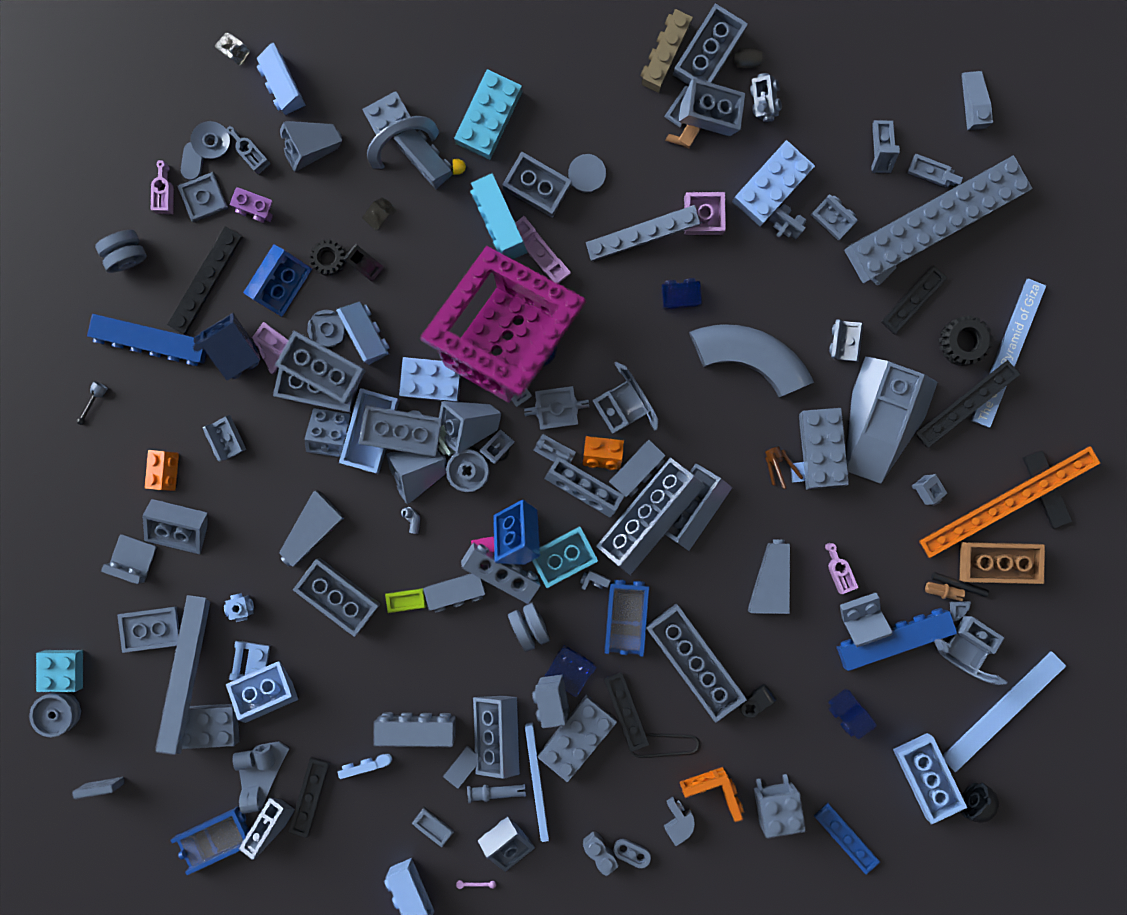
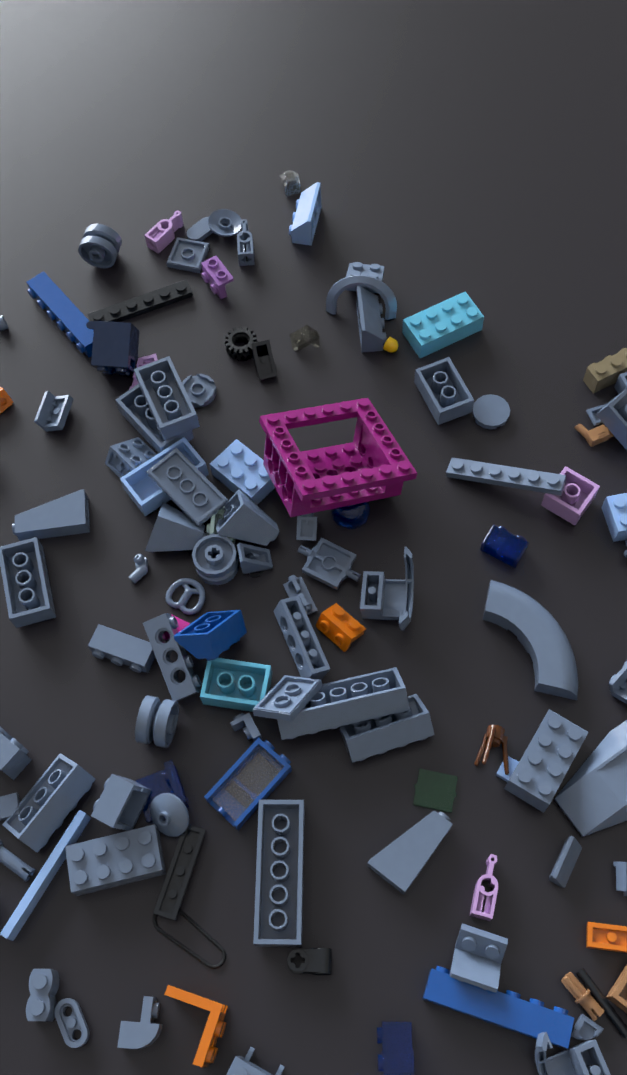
camera: 40 degrees right, 25 degrees down
(277, 280) = (191, 335): blue slope -> none
(308, 142) = (293, 262): sand blue slope -> none
(363, 332) = (221, 405): light blue slope -> none
(405, 600) = (76, 628): lime tile -> none
(466, 513) = (181, 604): none -> sand blue piece
(497, 217) = (394, 388): medium azure brick -> none
(541, 252) = (409, 435): lavender slope -> none
(590, 682) = (169, 814): none -> sand blue dish
(612, 542) = (287, 698): none -> sand blue tile
(637, 469) = (359, 658): sand blue brick -> none
(758, 524) = (435, 790): none -> clear green piece
(879, 510) = (565, 862): none -> sand blue slope

